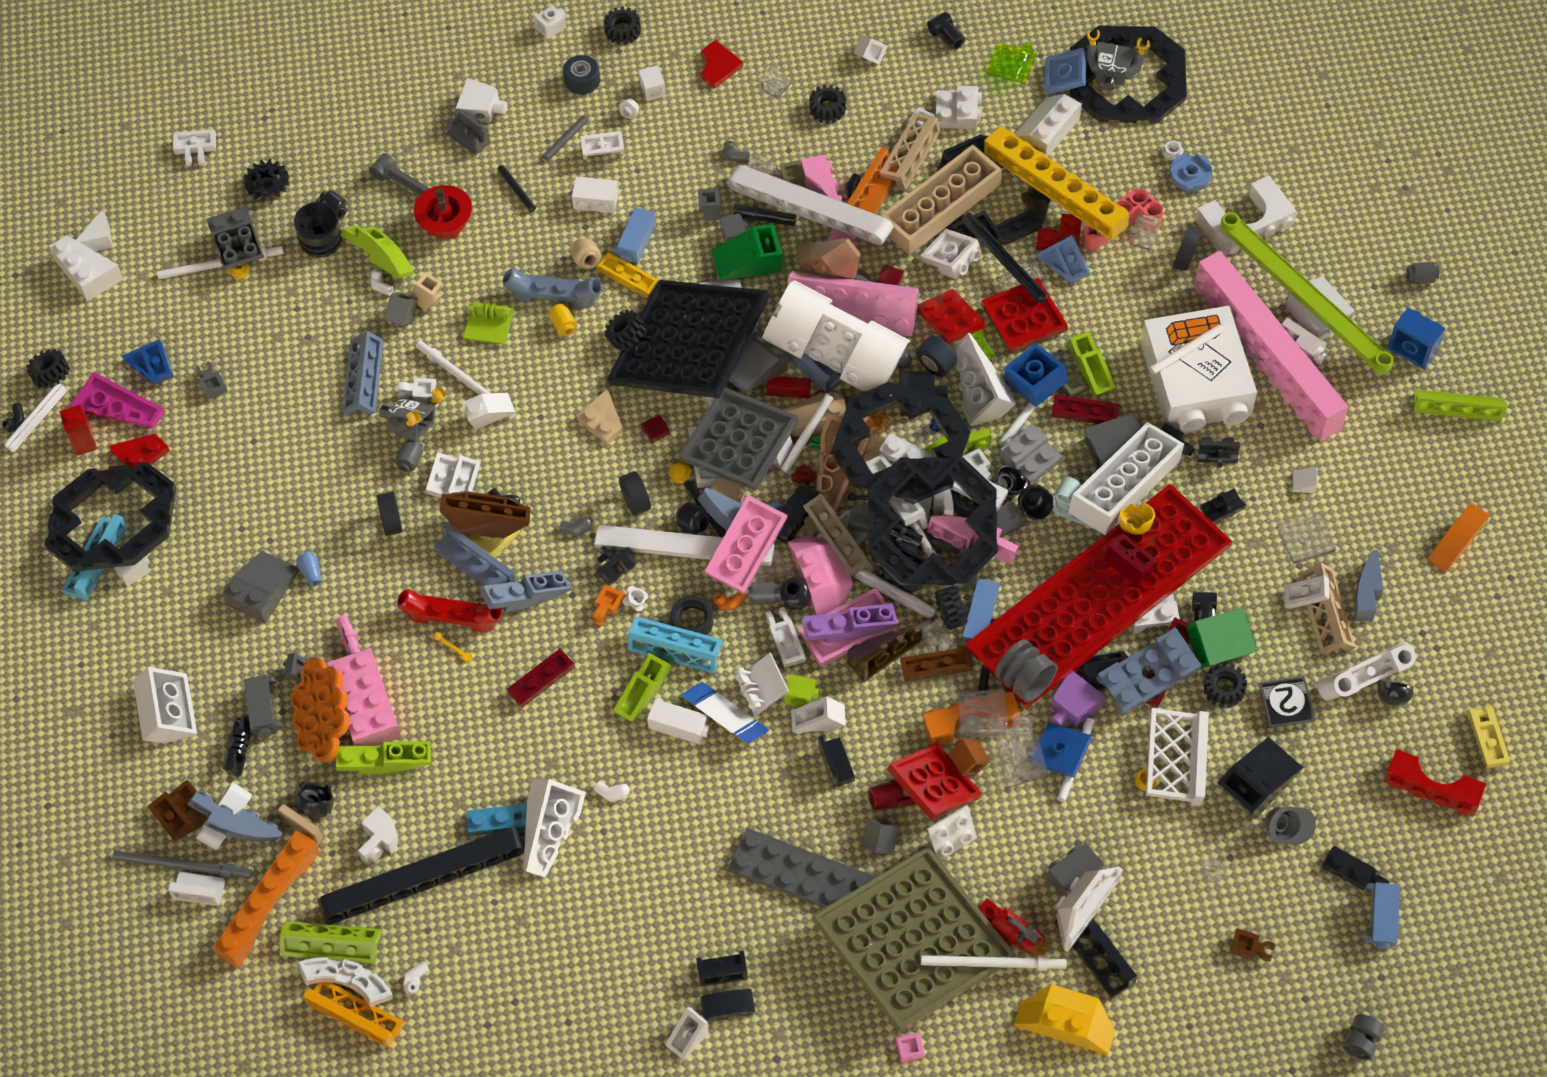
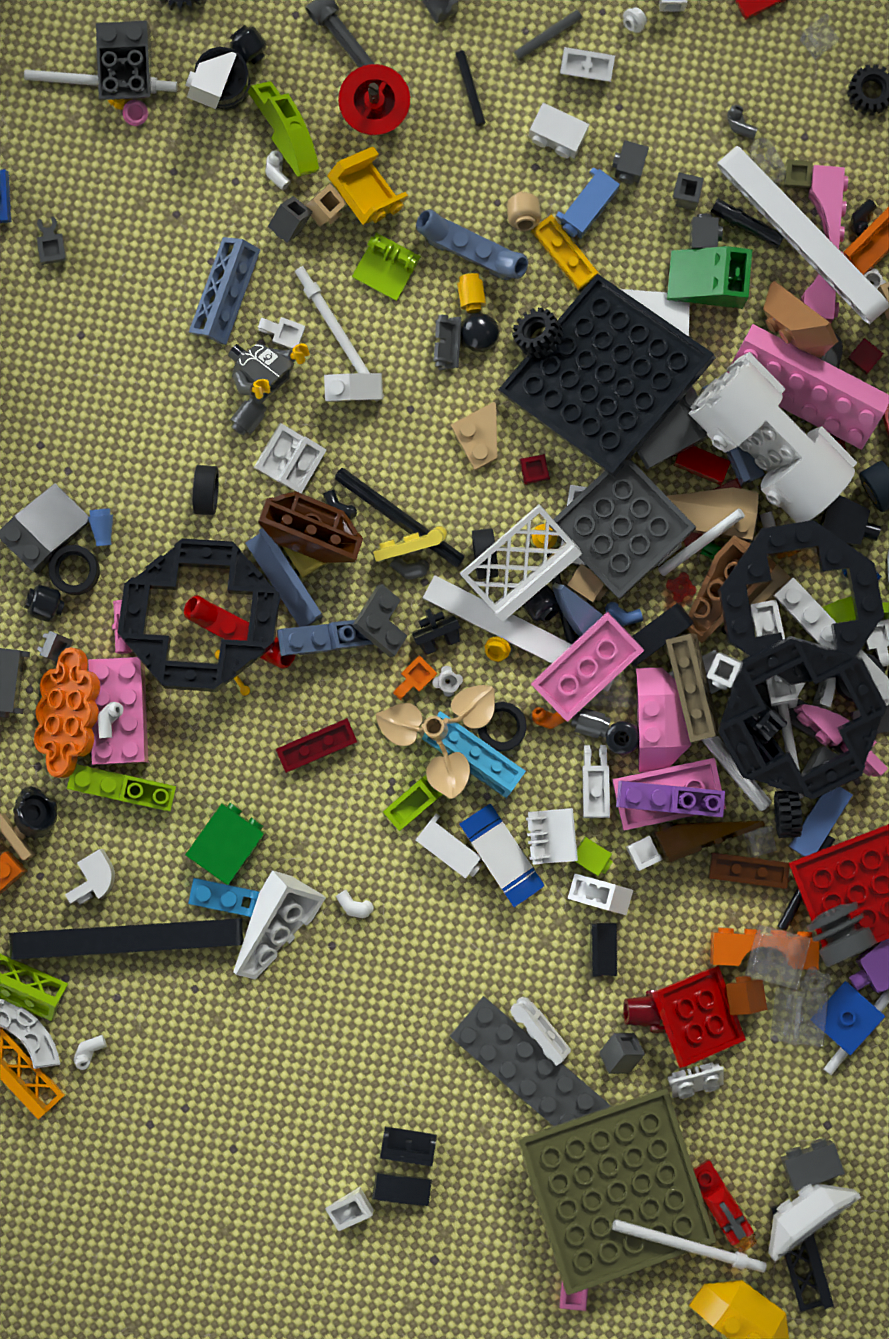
camera: 15 degrees right, 25 degrees up
(254, 275) = (135, 112): none -> bright pink plate
(277, 638) = (44, 603): none -> black head
(288, 594) = (60, 555): none -> black tyre
(308, 223) = (210, 79): none -> white slope
(356, 695) = (106, 717): none -> white arm
(449, 619) = (233, 654): none -> black plate
(451, 271) = (365, 187): none -> yellow panel
(486, 774) = (226, 843): none -> green brick
(556, 359) = (447, 350): none -> dark grey hinge
(556, 493) = (395, 514): none -> black axle
(561, 571) = (375, 623): none -> dark grey plate
(571, 503) = (411, 543): none -> light yellow plate
(578, 346) = (479, 332): none -> black hair
(656, 658) = (447, 773): none -> tan plant
(658, 199) = (630, 162): none -> dark grey brick
(668, 562) = (497, 649): none -> yellow plate
(677, 497) = (535, 580): none -> white fence
(803, 837) = (540, 1029): none -> white hinge
(843, 678) = (643, 853): none -> white panel
(856, 509) = (724, 671): none -> white brick

